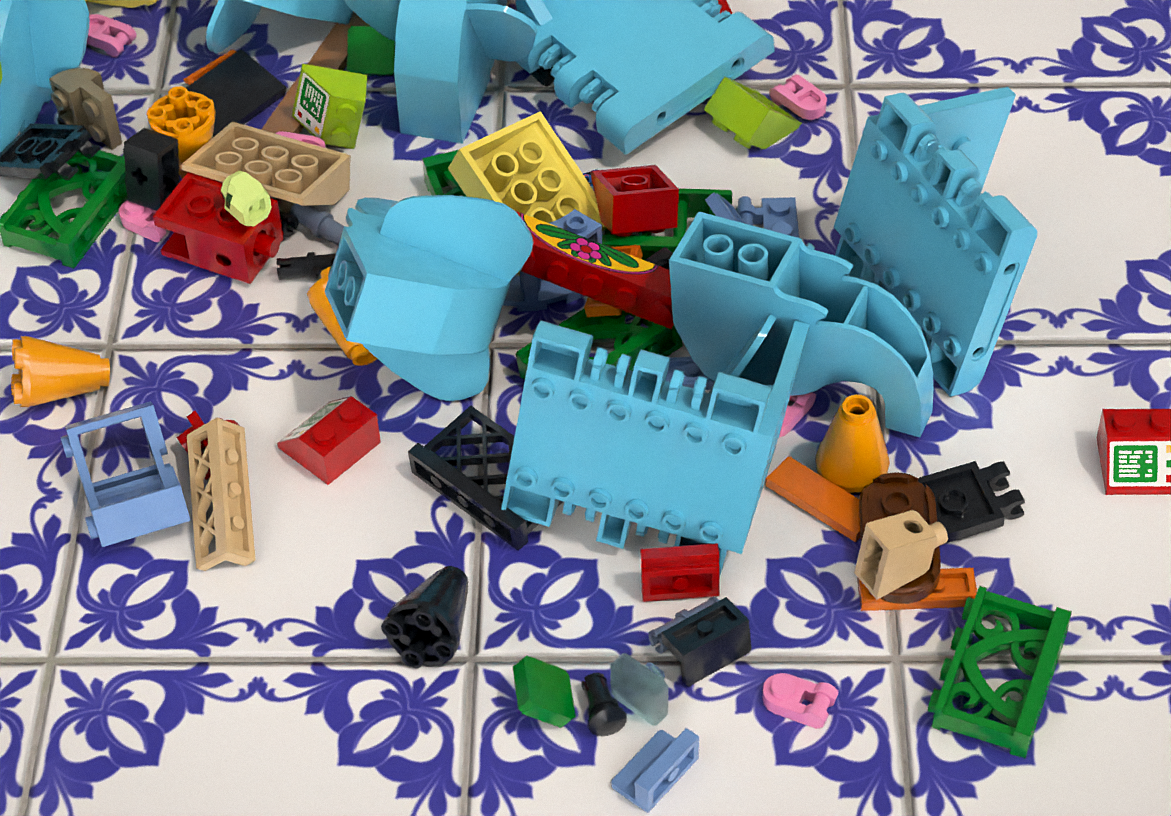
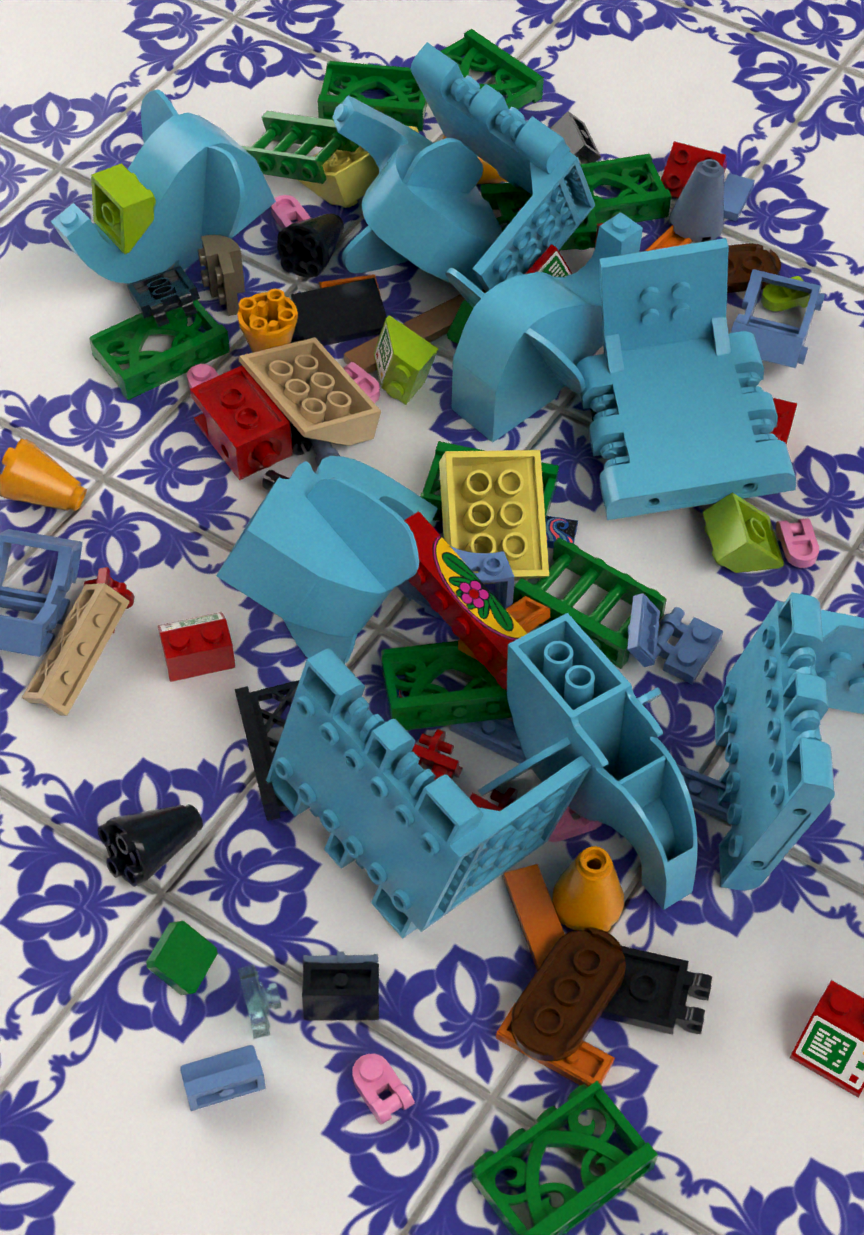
camera: 30 degrees right, 5 degrees up
(151, 50) = (309, 244): none -> black cone
(151, 167) = (221, 344): black brick -> none
(246, 198) = (259, 411): yellowish green rock -> none
(603, 710) = (219, 1000): black pin -> none
(635, 199) = (573, 565): red slope -> none
(680, 572) = (364, 917): red plate -> none
(897, 551) = (543, 1009): tan torso -> none

